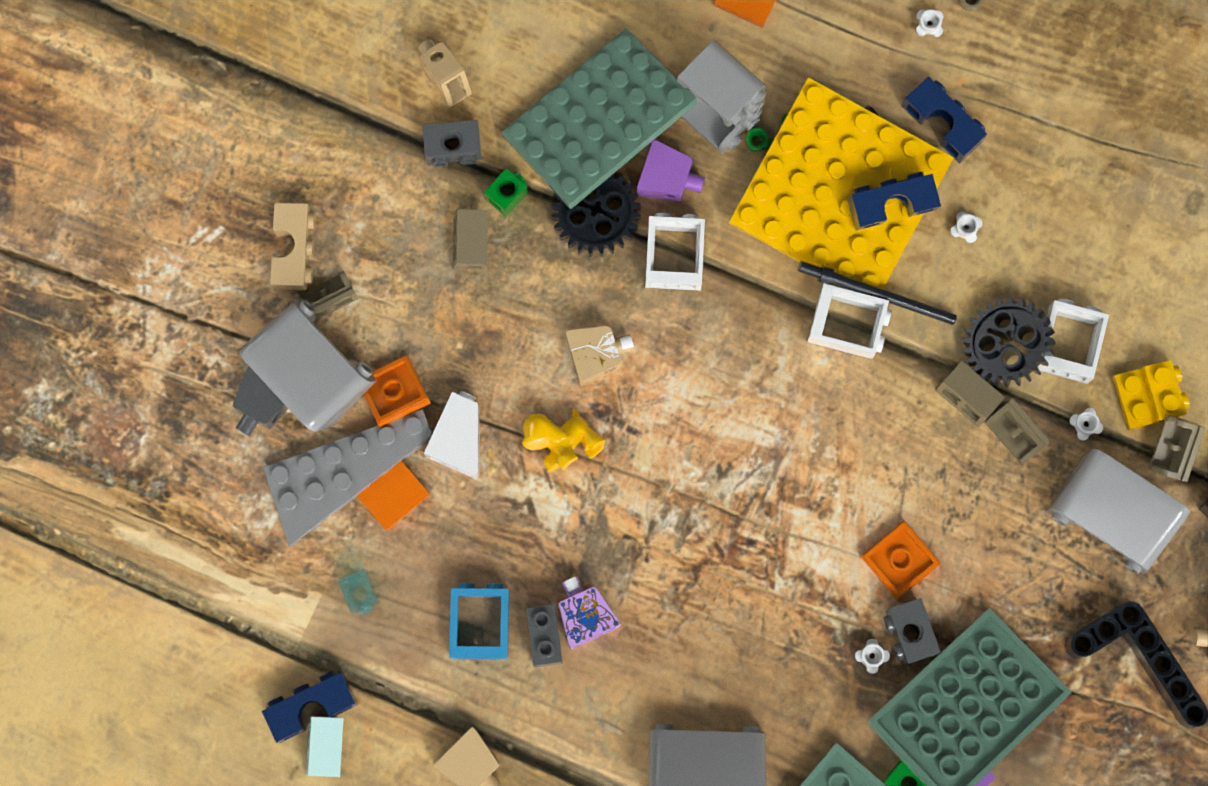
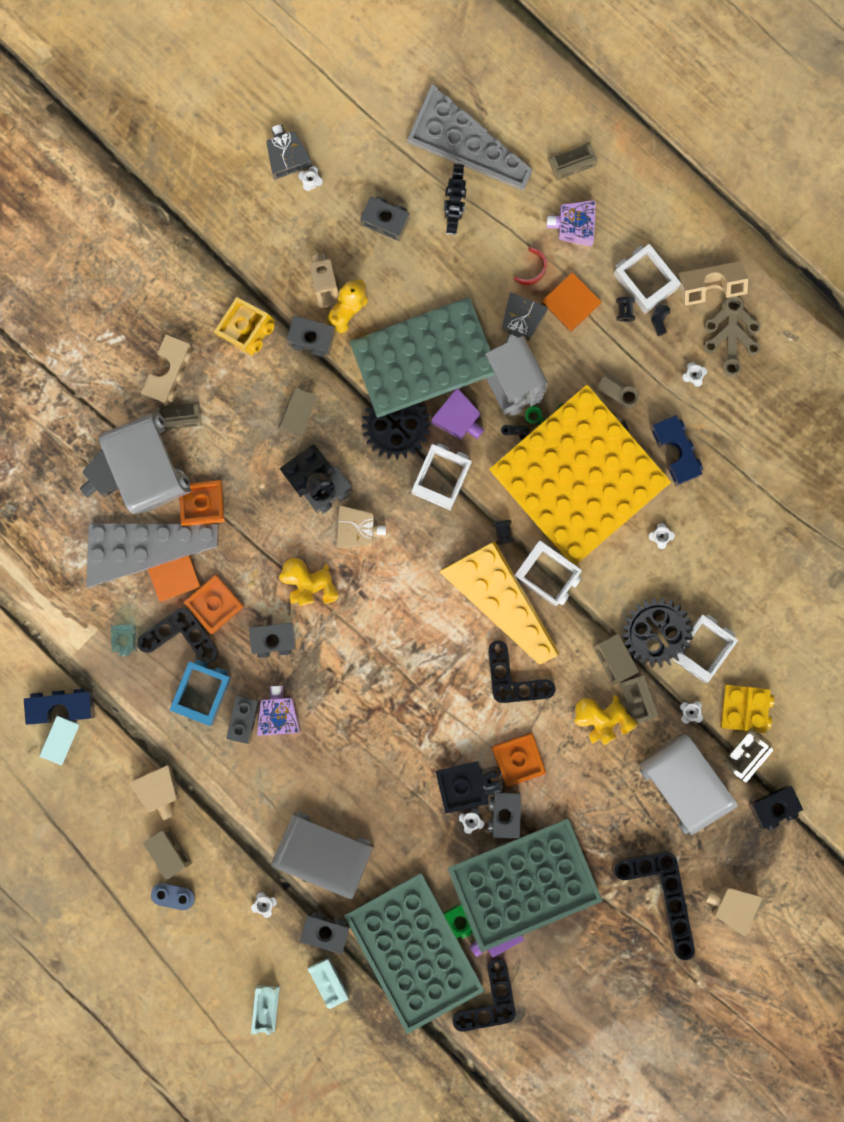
camera: 20 degrees right, 5 degrees up
(367, 160) = (245, 326): none -> yellow plate
(419, 555) = (176, 628): none -> black beam
(454, 509) = (213, 604): none -> orange tile
(457, 436) = (235, 552): white slope -> none
(484, 84) = (350, 300): none -> yellow animal
(503, 203) = (332, 395): green brick -> none
(514, 306) = (310, 474): none -> black plate
(543, 303) = (341, 492): none -> dark grey brick
(553, 510) = (260, 635): none -> dark grey brick
(697, 27) = (522, 317): none -> dark grey torso
(742, 165) = (509, 430): none -> black arm
(775, 291) = (503, 532): none -> black bush
(794, 365) = (495, 590): none -> yellow wing
(827, 275) = (544, 536): black bar -> none
(844, 73) = (616, 390): none -> dark tan piece
(848, 470) = (506, 681): none -> black beam
(851, 613) = (467, 786): none -> black plate
(917, 194) = (632, 499): dark blue arch -> none
(985, 472) = (589, 713): none -> yellow animal

